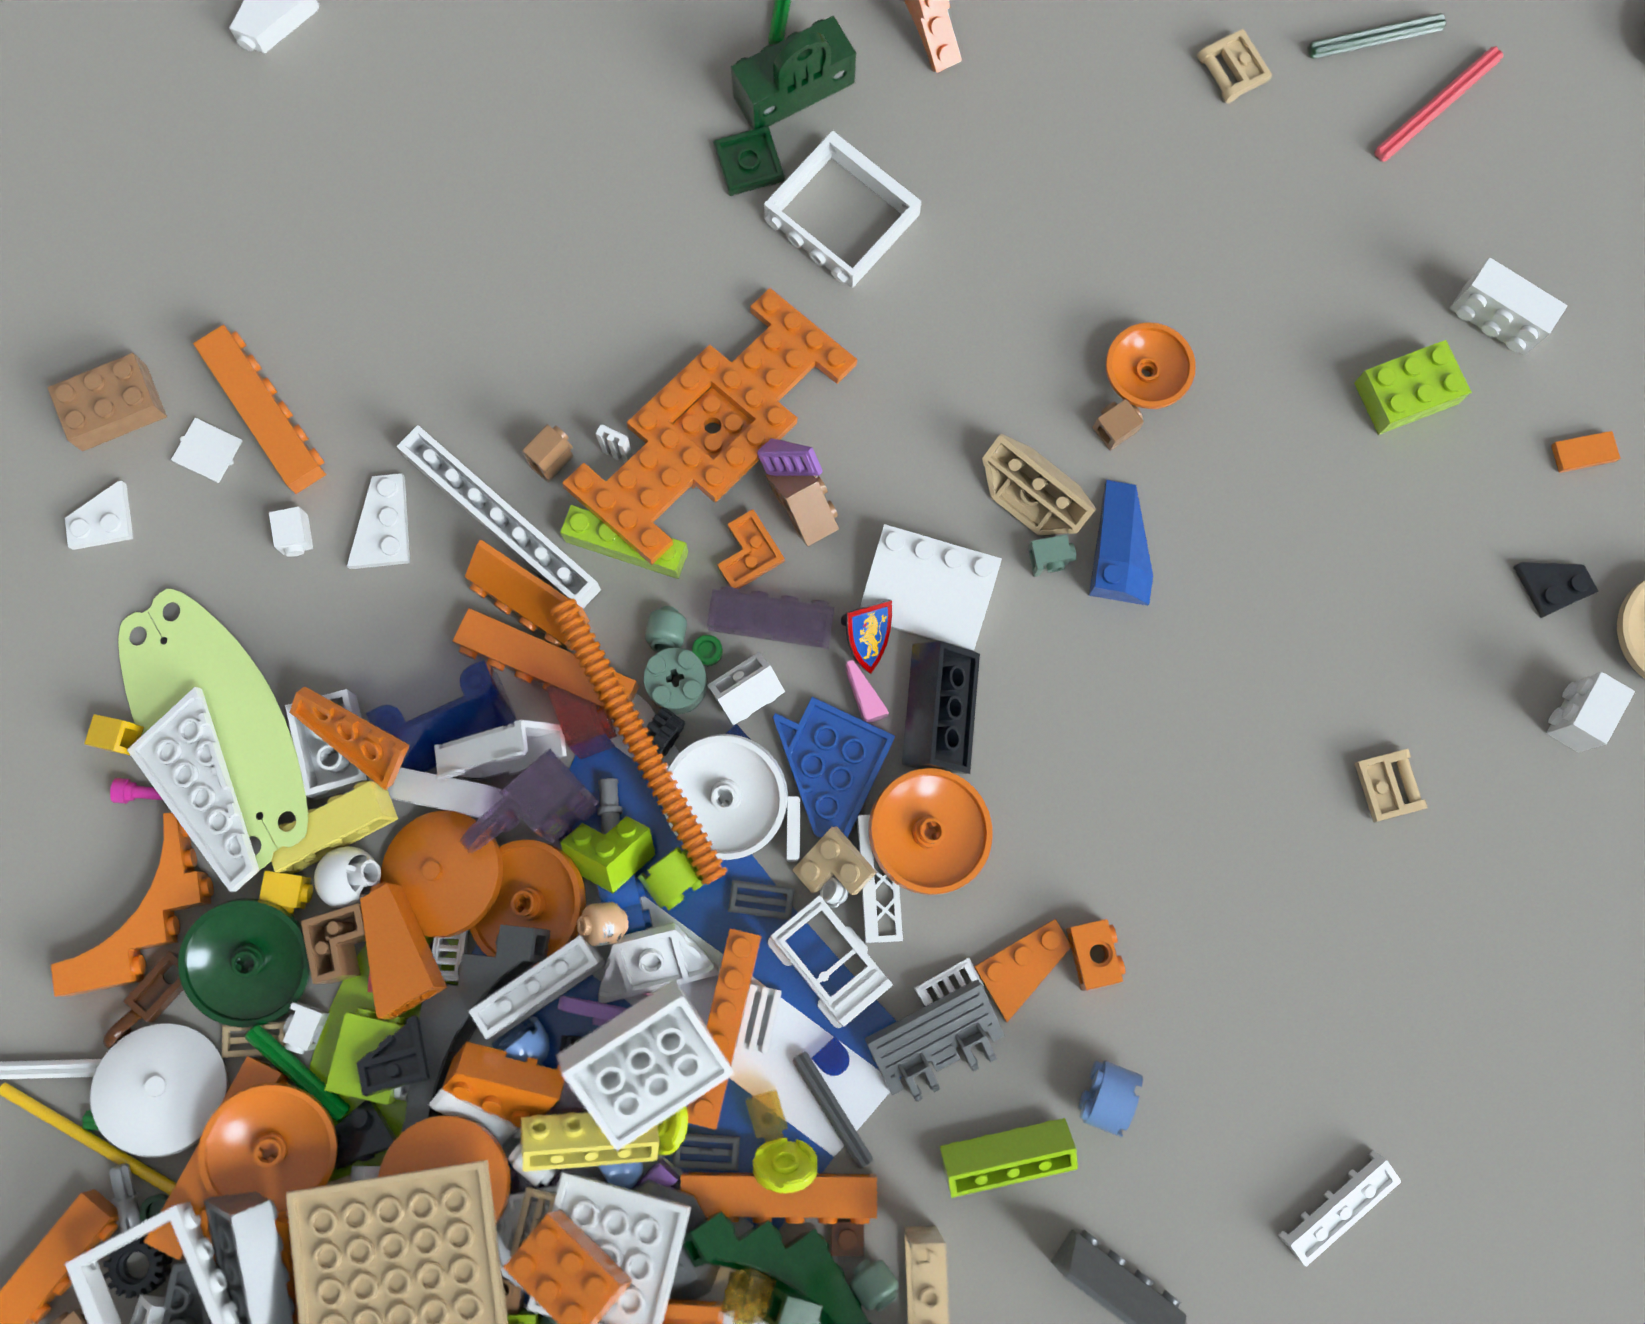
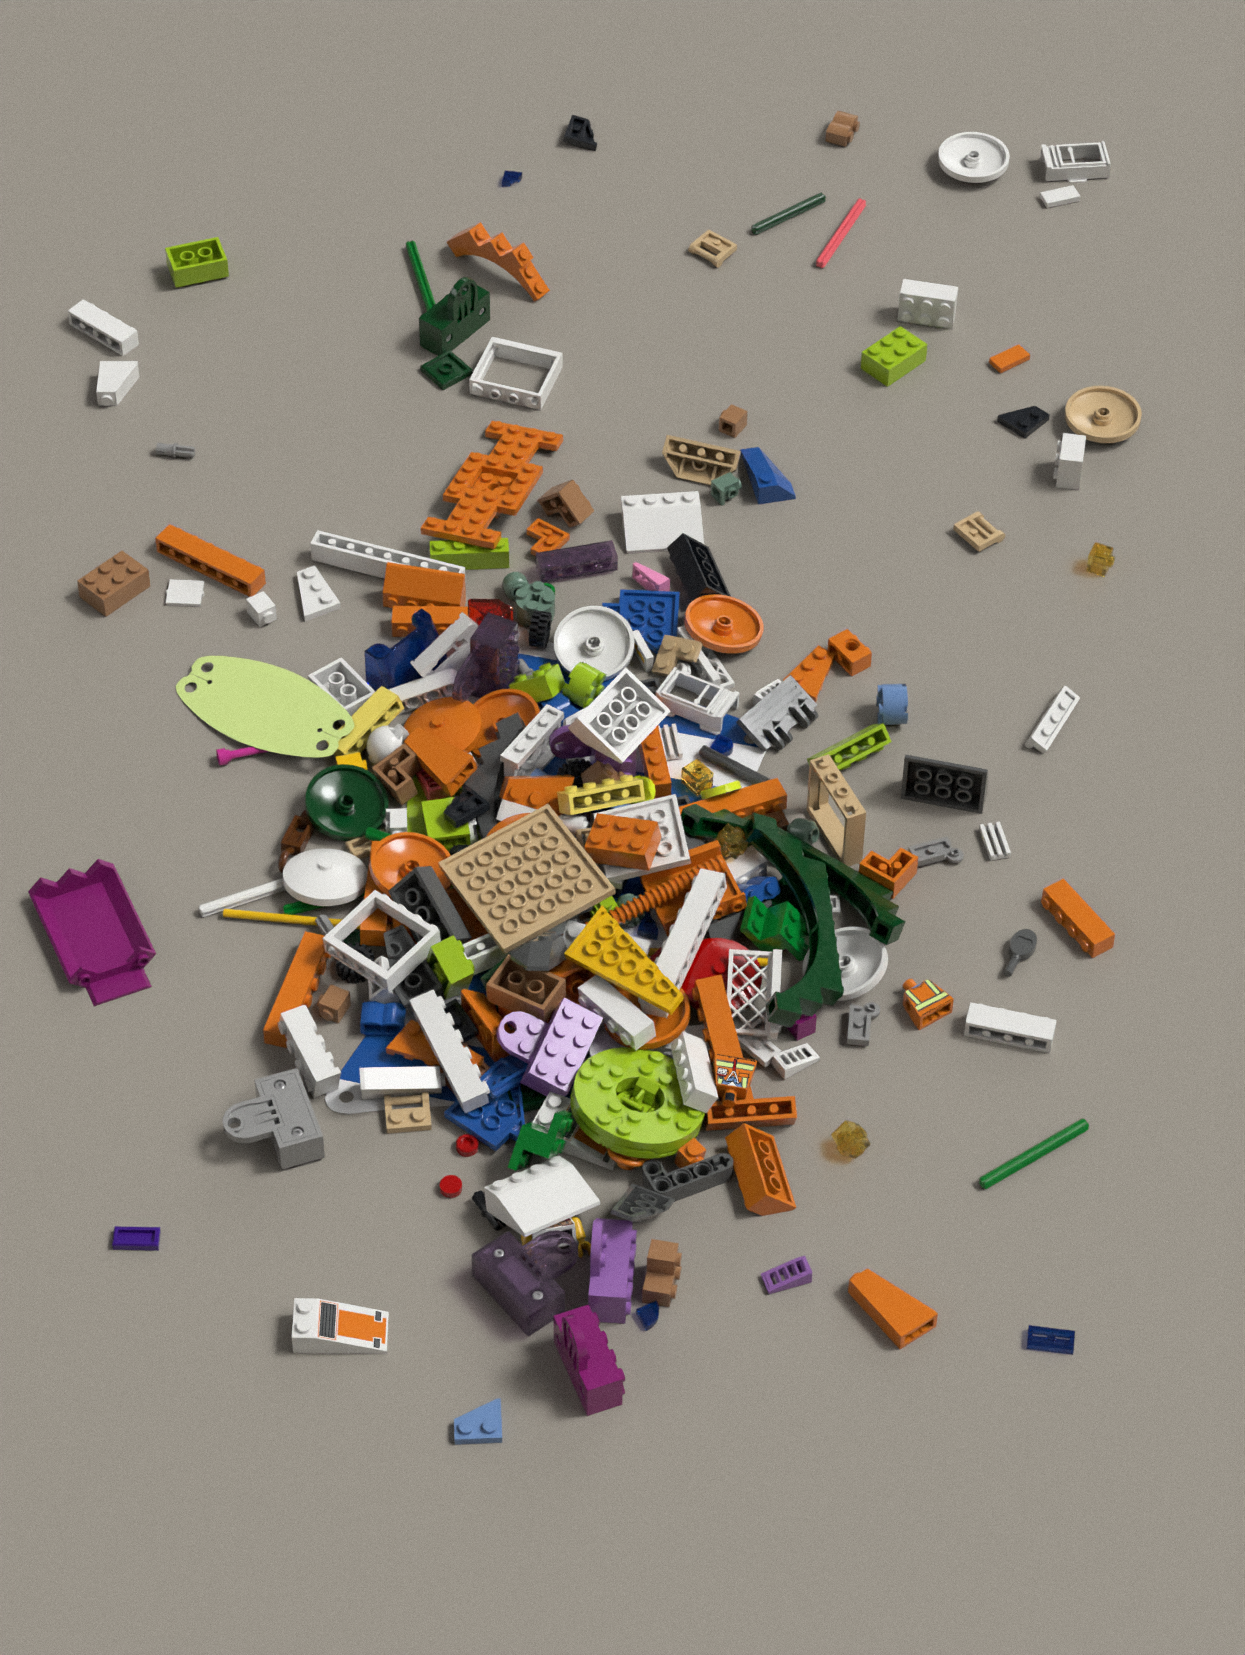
camera: 20 degrees left, 30 degrees down
(101, 519) = (137, 642): white wing -> none
(112, 734) = (204, 729): yellow brick -> none
(152, 925) = (278, 809): orange arch -> none
(192, 778) = (271, 727): white wing -> none
(302, 174) = (175, 450): none -> light grey axle
(357, 740) = (364, 668): orange wing -> none
(548, 452) = (401, 524): medium nougat brick -> none
(602, 923) = (557, 701): light nougat head -> none
(619, 447) = (432, 505): white tile -> none
(638, 740) = (534, 619): orange piece -> none
(746, 688) = (580, 593): white brick -> none
(785, 459) = (541, 487): medium lavender slope -> none
(868, 633) = (636, 548): shield -> none
(1161, 353) = (737, 386): orange dish -> none
(1550, 921) = (1100, 559): none -> clear yellow brick

